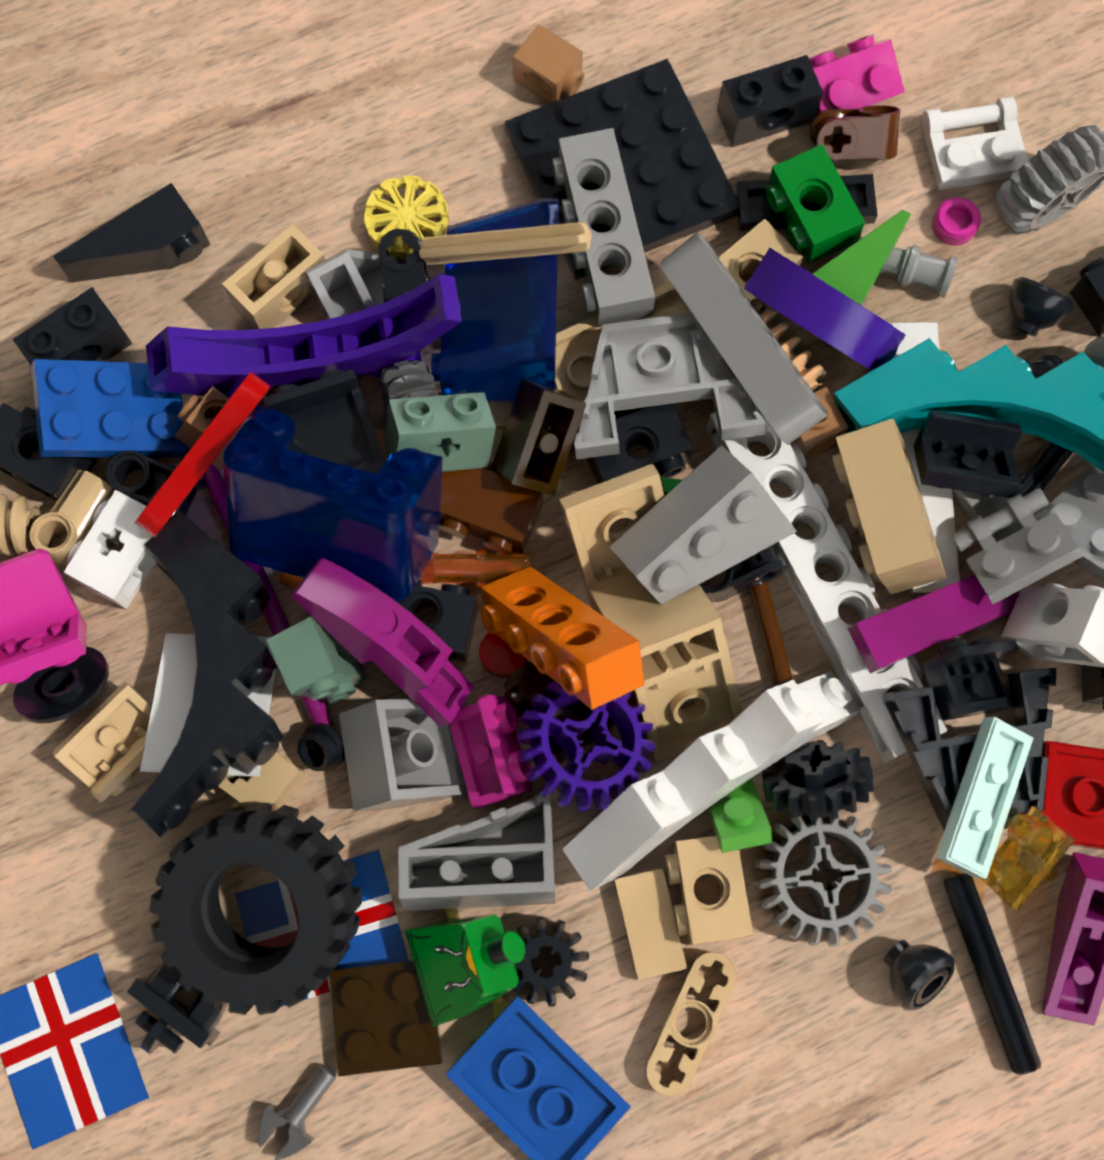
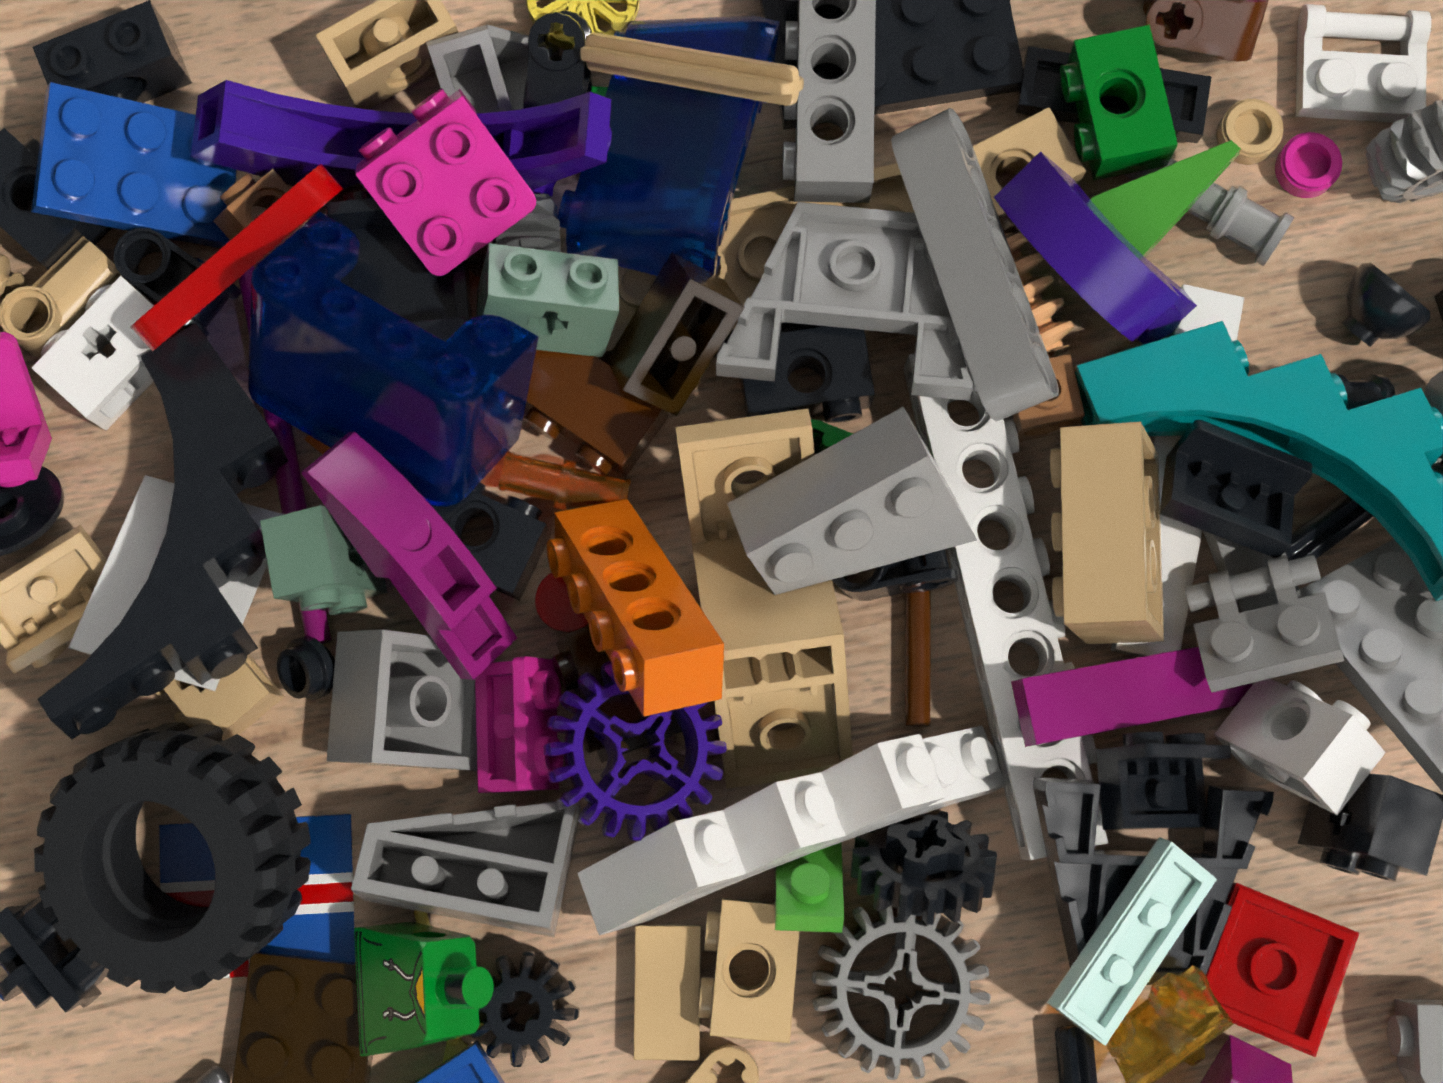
camera: 15 degrees right, 5 degrees up
(345, 363) = (444, 182): none -> dark pink bracket
(912, 199) = (1253, 127): none -> tan tile

